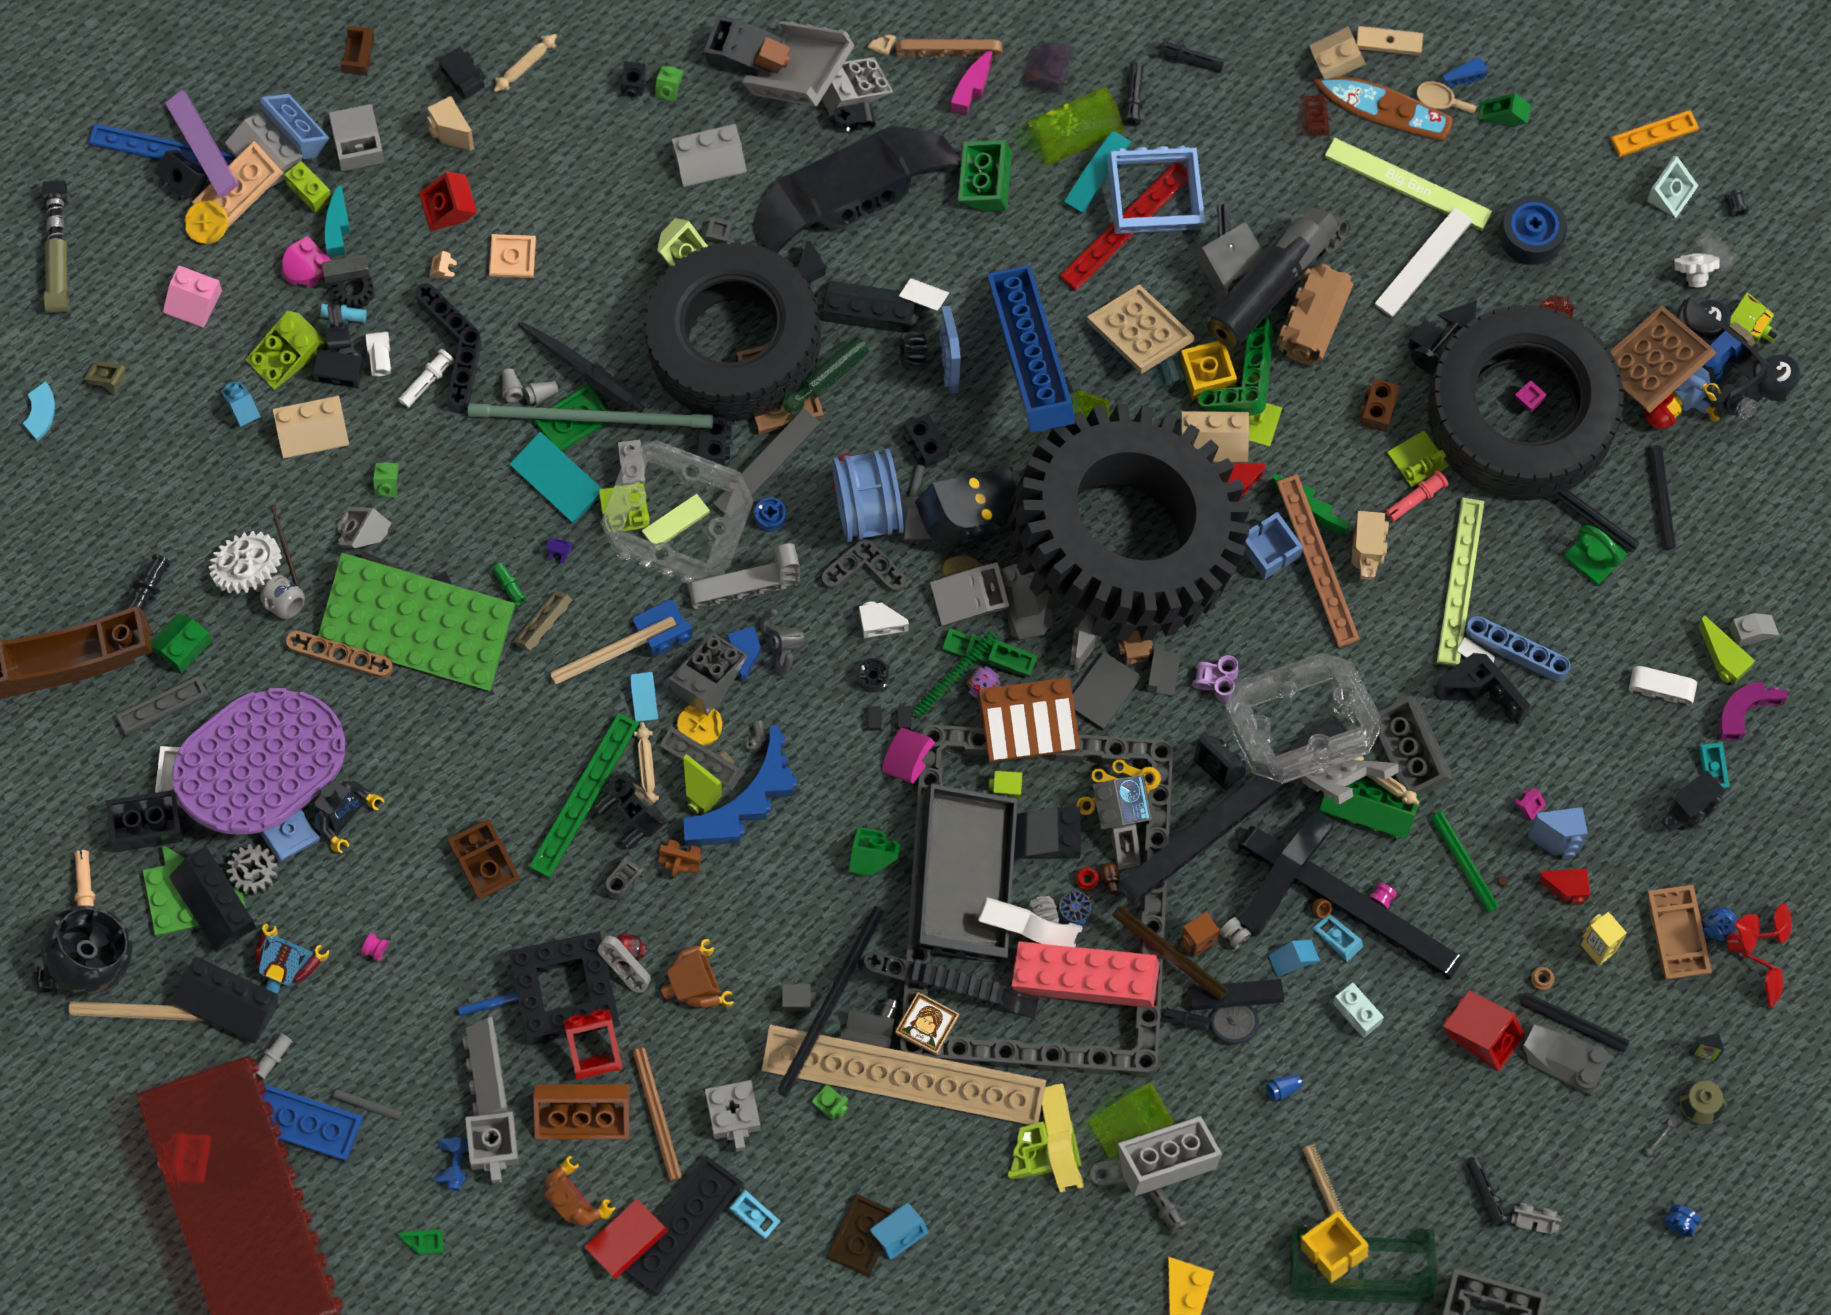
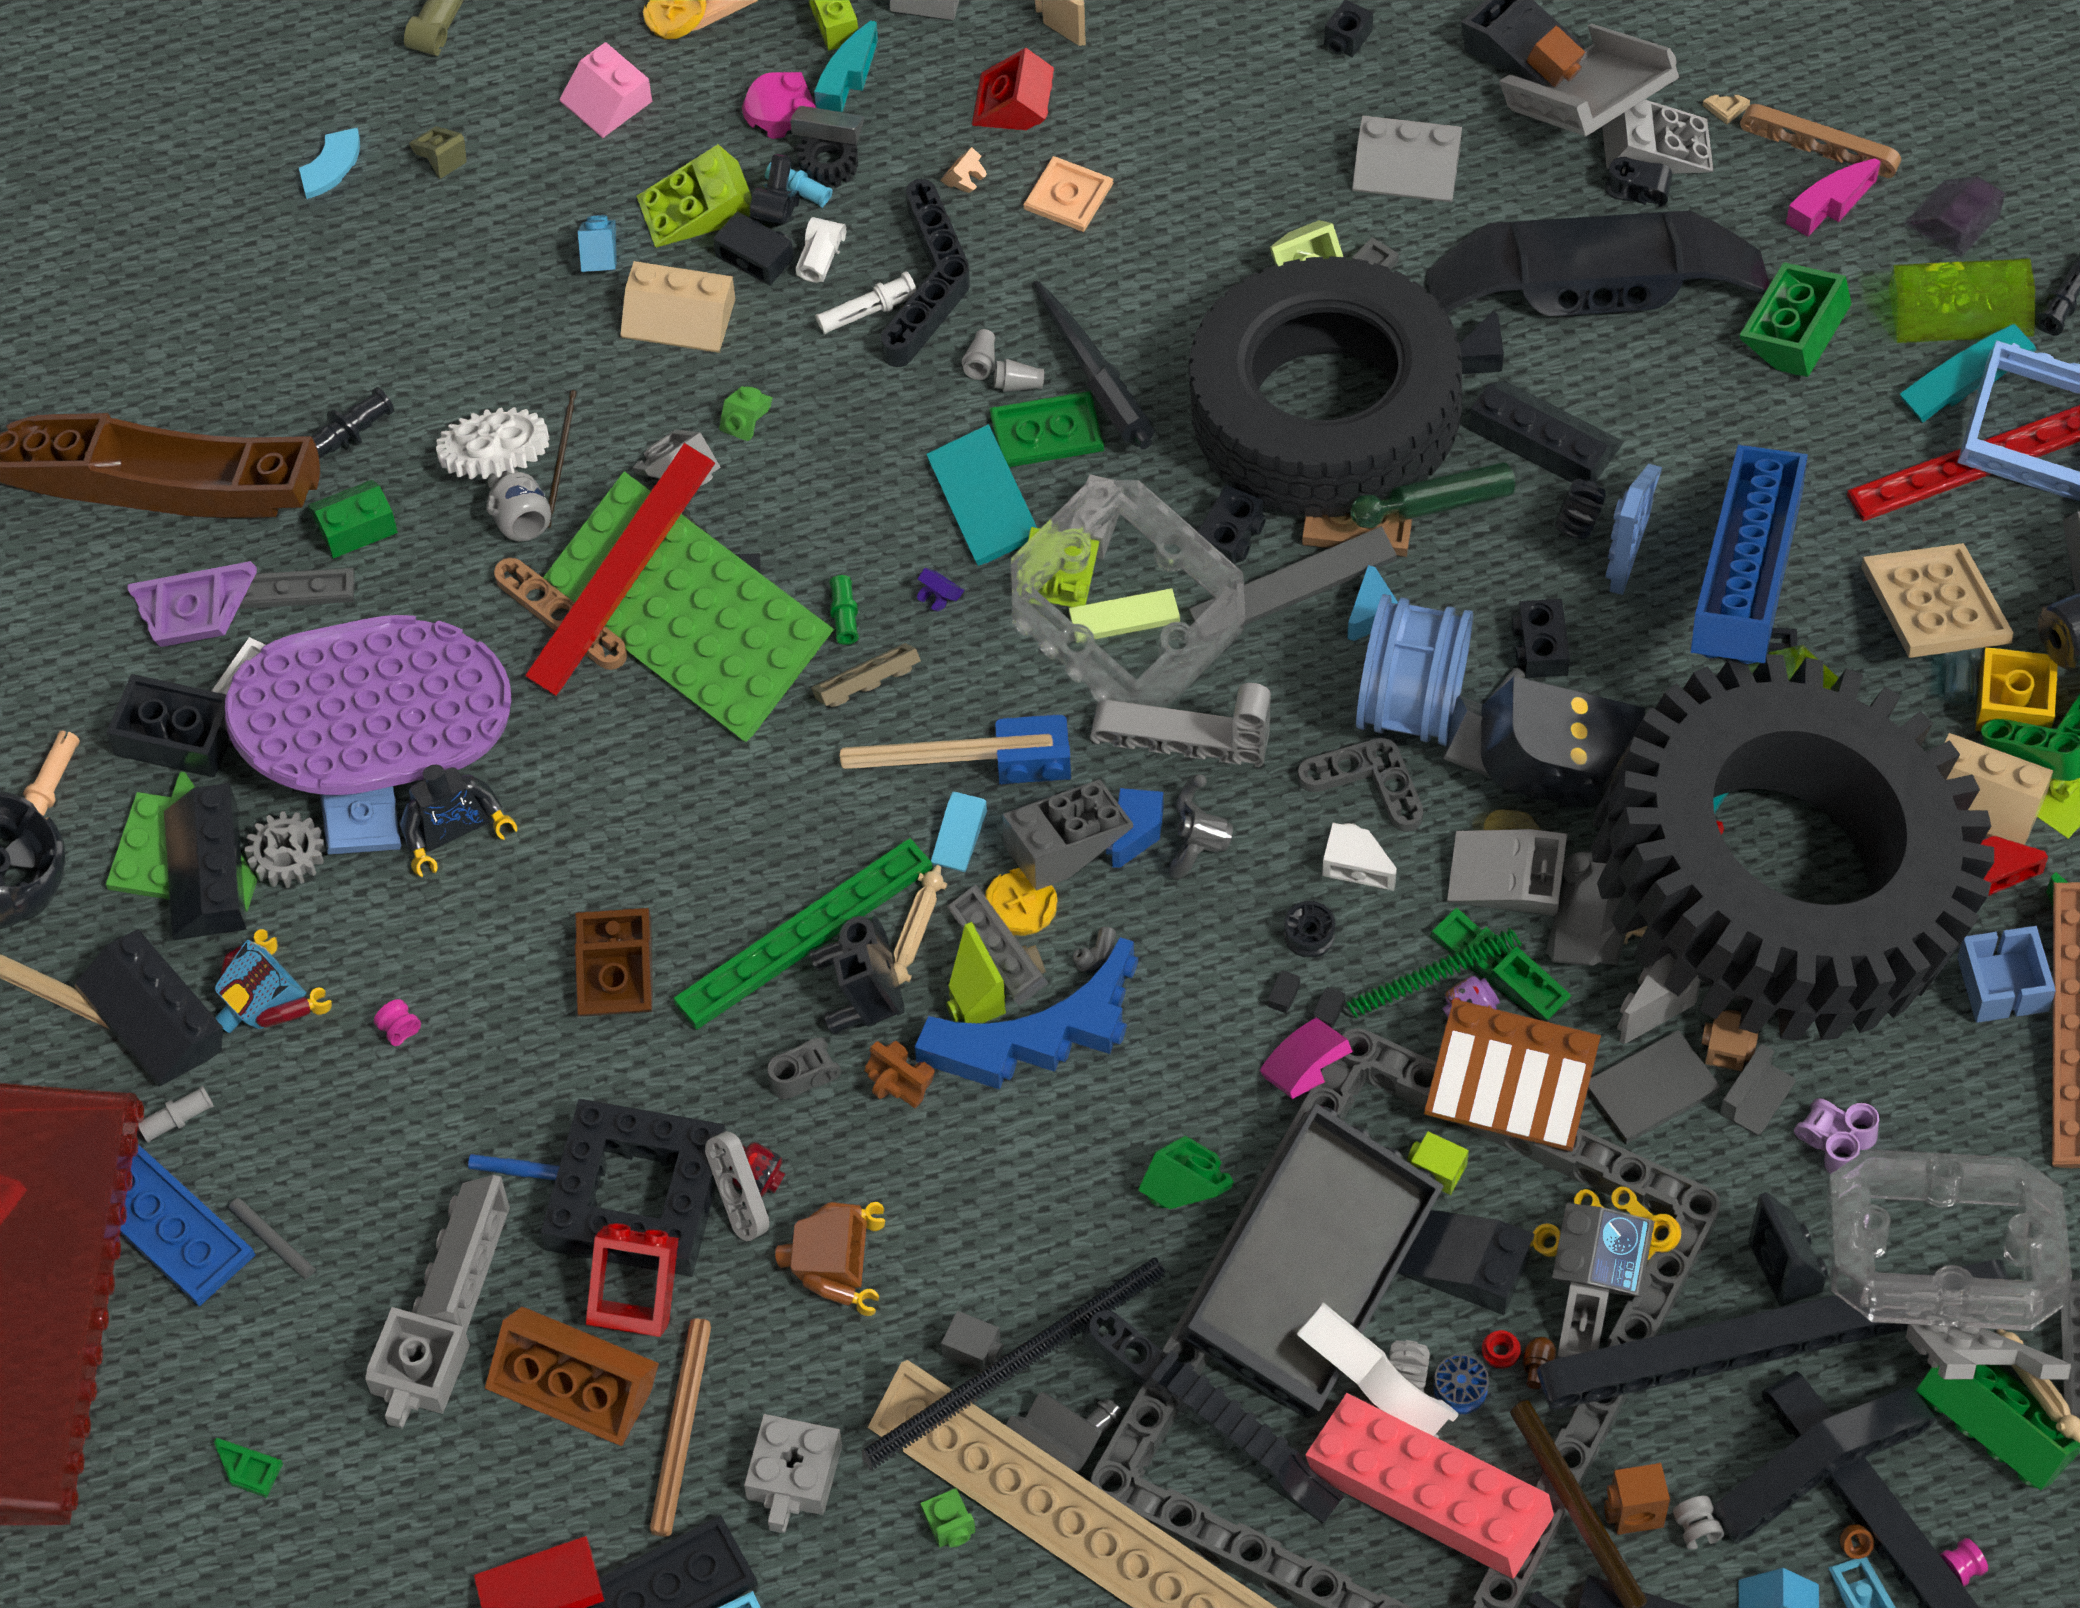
camera: 30 degrees right, 10 degrees down
(113, 739) = (192, 603): none -> medium lavender wing
(369, 615) = (620, 569): none -> red tile
(453, 1176) = (338, 1389): blue piece -> none
(569, 1200) = (484, 1495): dark orange torso -> none
(668, 83) = (1394, 50): bright green bracket -> none
(693, 420) = (1209, 483): sand green piece -> none
(770, 514) = (1274, 655): blue wheel -> none
(819, 458) = (1366, 604): none -> dark azure slope
(924, 294) = (1632, 442): white sticker -> none
(927, 1023) = (1147, 1457): tile -> none

